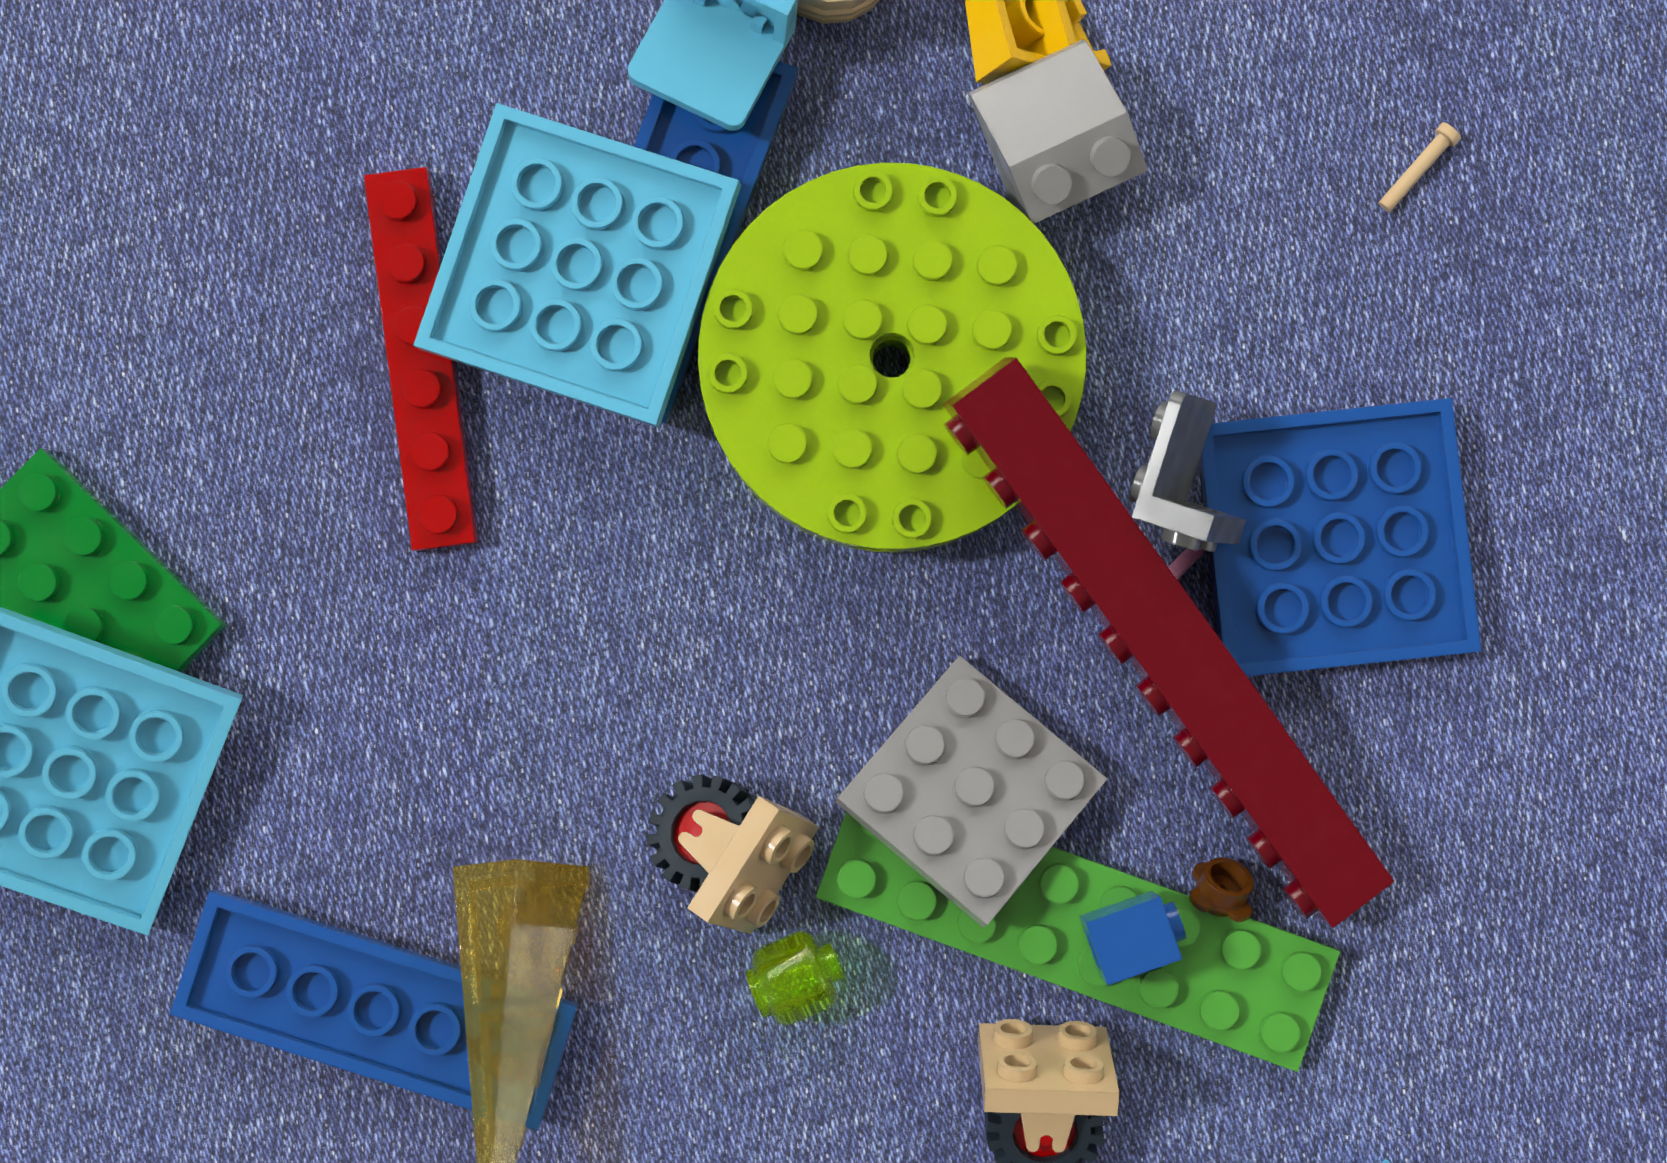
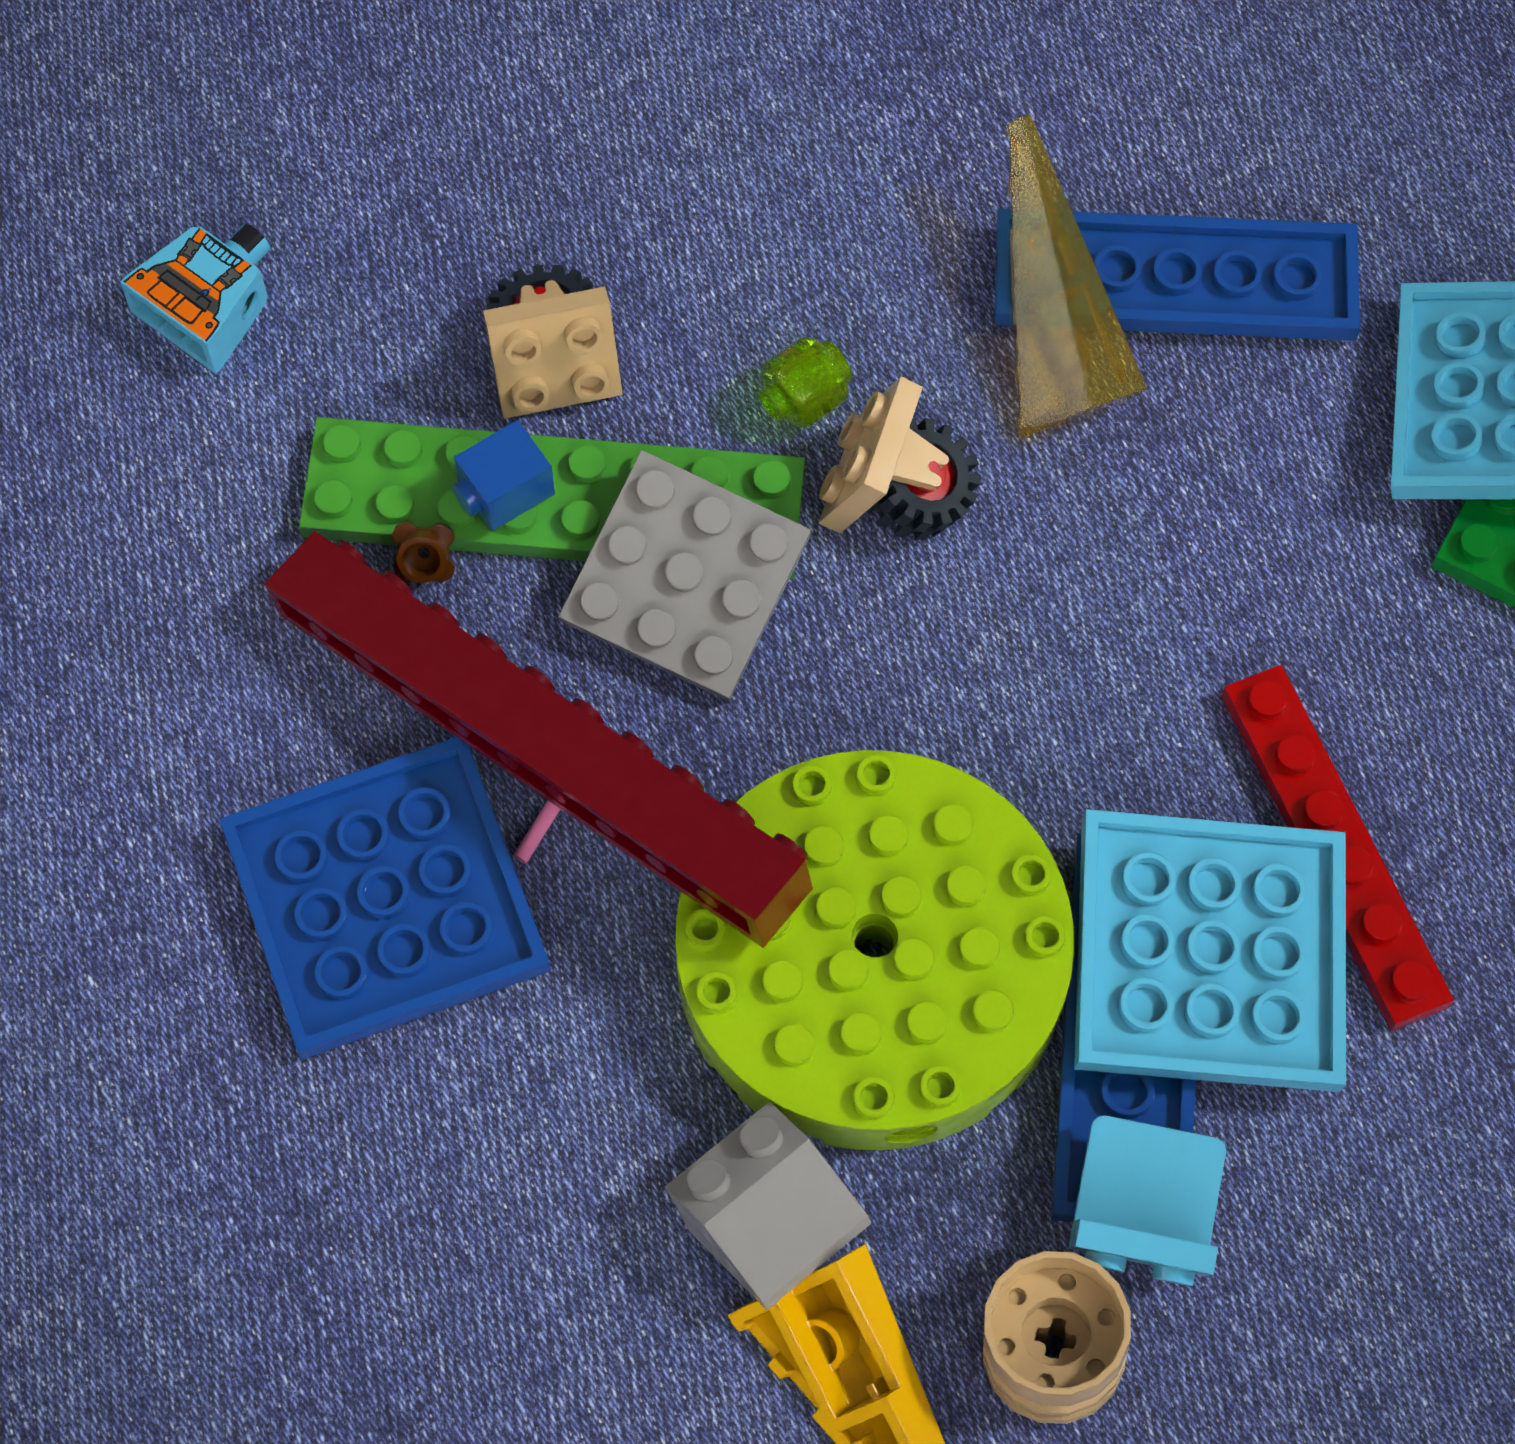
camera: 165 degrees right, 20 degrees down
(1166, 481) = (562, 855): dark grey bracket -> none
(1445, 137) = (357, 1328): tan piece -> none

